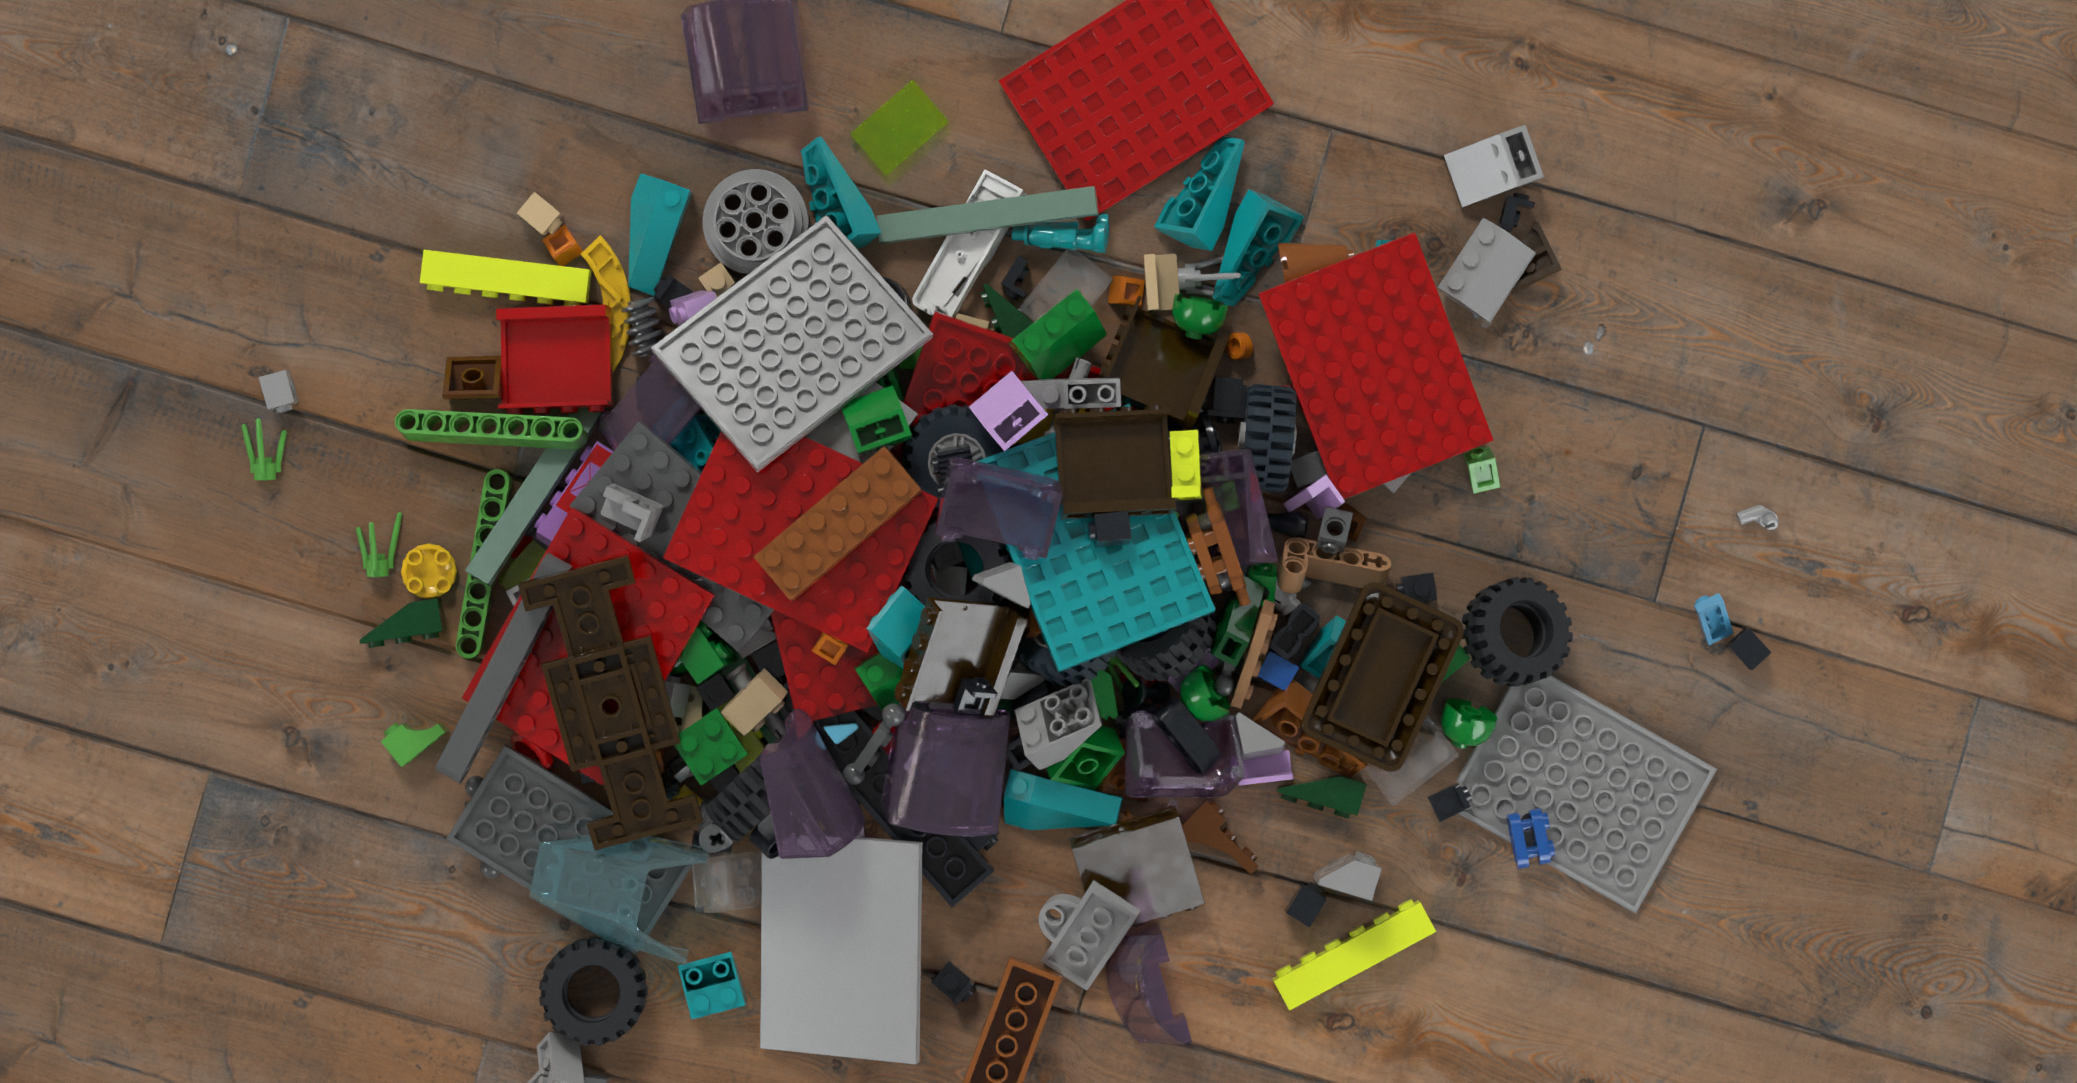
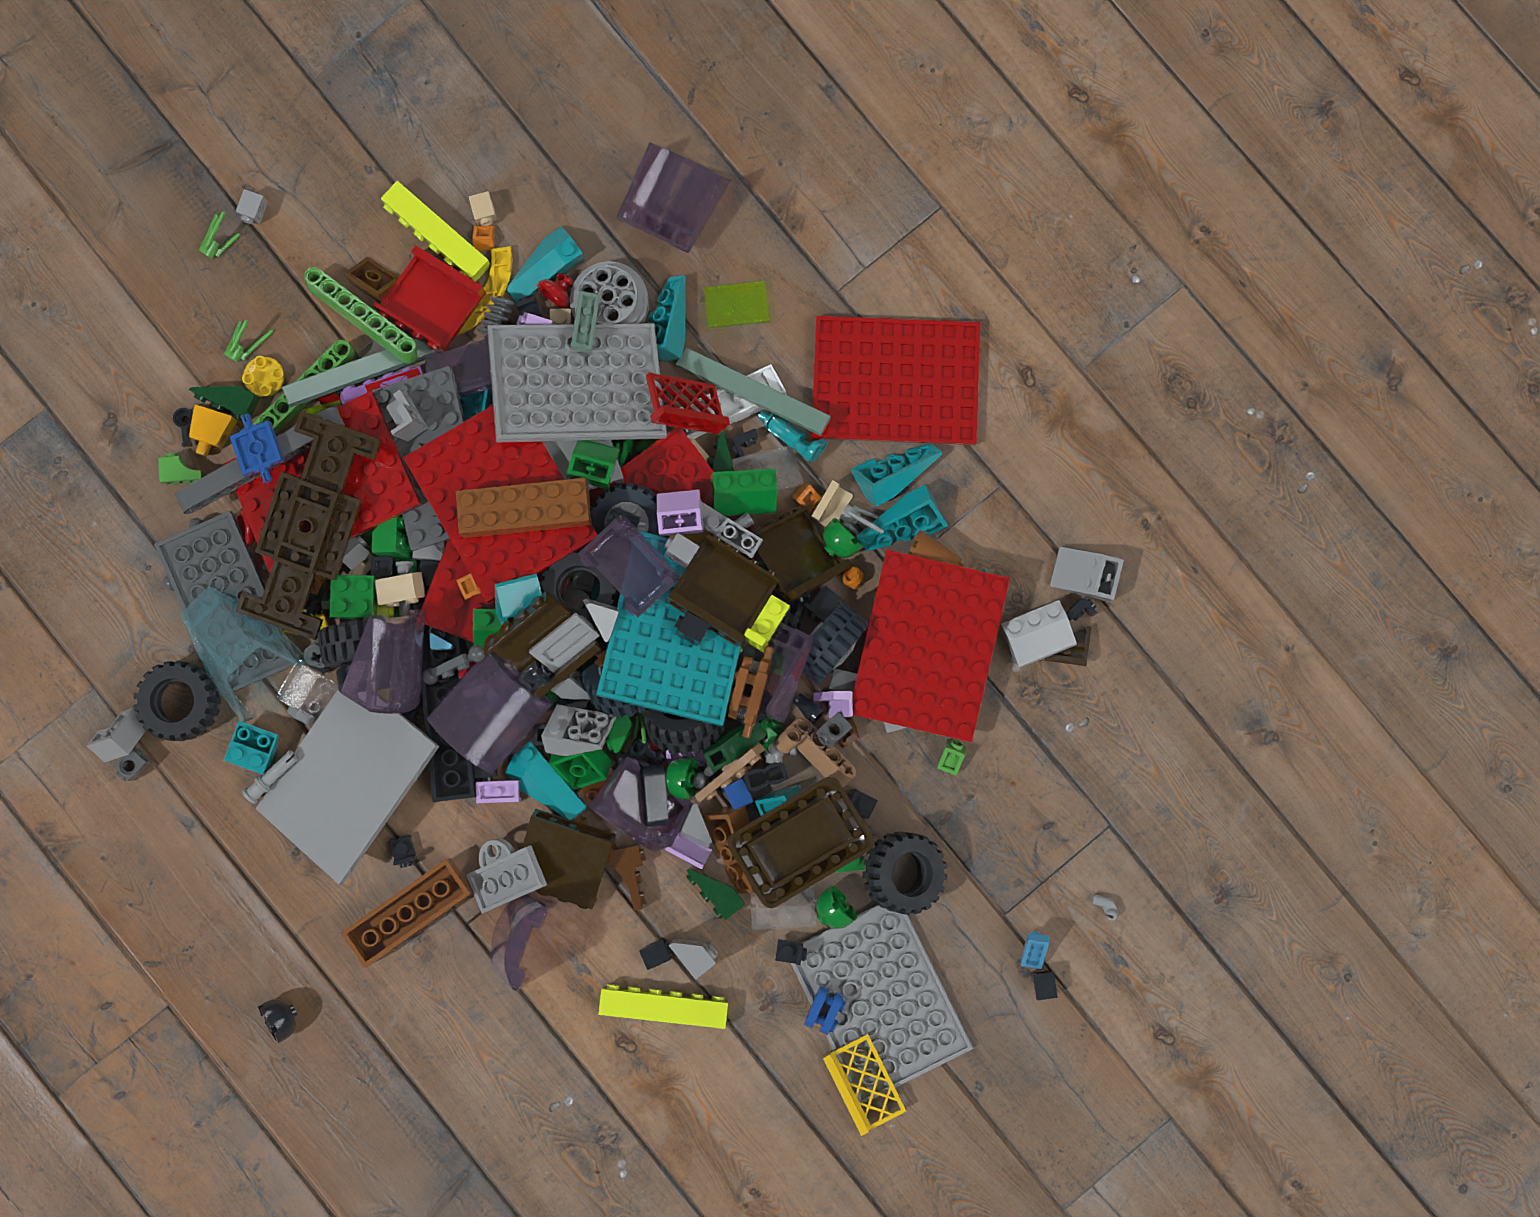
camera: 30 degrees right, 5 degrees down
(383, 686) = (178, 419): none -> black bar
(412, 670) = (210, 429): none -> light orange torso
(495, 658) = (256, 448): none -> blue plate
(690, 250) = (556, 290): none -> red hair
(737, 915) = (300, 716): none -> light grey tile
(752, 1014) = (263, 783): none -> light grey pin
(754, 269) = (585, 322): none -> sand green plate
(940, 296) = (687, 417): none -> red fence
(982, 638) = (564, 642): none -> light grey piece
(1013, 848) = (497, 792): none -> lavender panel
(1038, 451) = (680, 550): none -> light grey brick
(1614, 909) = (847, 1092): none -> yellow fence

